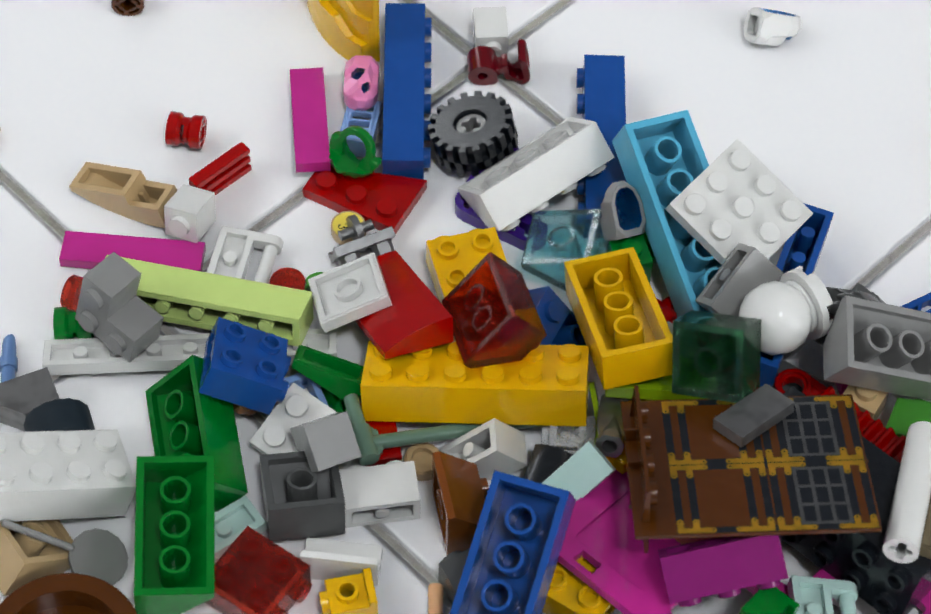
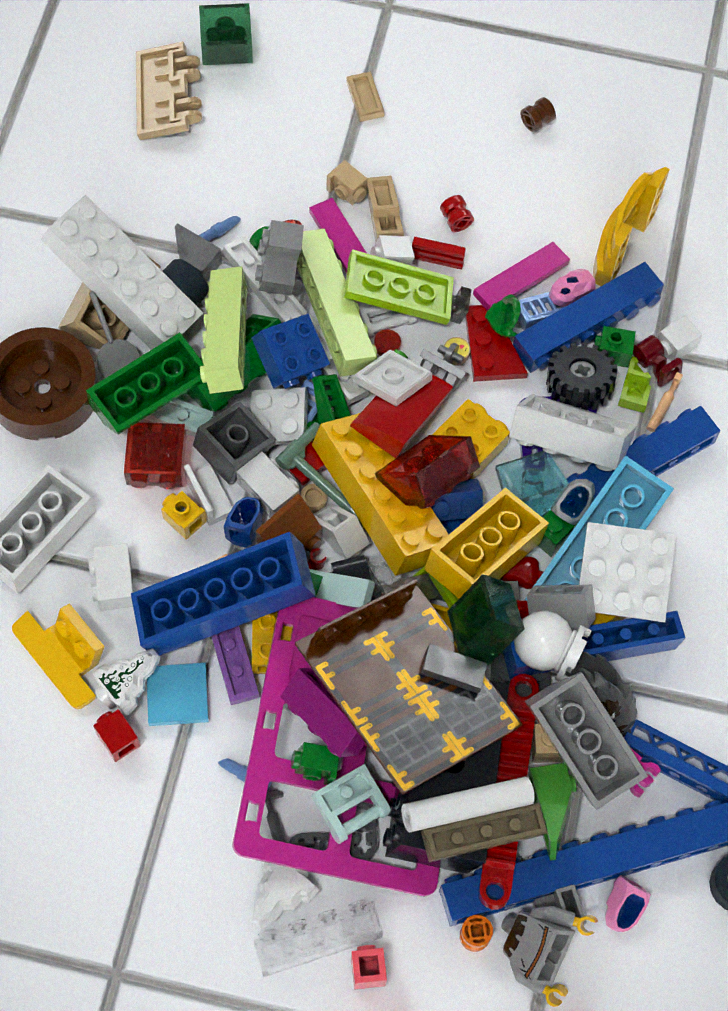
camera: 55 degrees right, 10 degrees up
(63, 205) = (347, 183): none -> tan brick
(169, 412) = (225, 331): none -> yellowish green brick
(239, 227) = (399, 287): none -> lime plate
(300, 190) = (460, 305): none -> clear smoke plate
(327, 441) = (269, 429): light grey piece -> none
(408, 540) = (243, 522): none -> blue rock
(454, 80) = (617, 343): none -> green brick
(524, 105) = (635, 388): none -> lime slope
(551, 86) = (664, 404): none -> light nougat piece

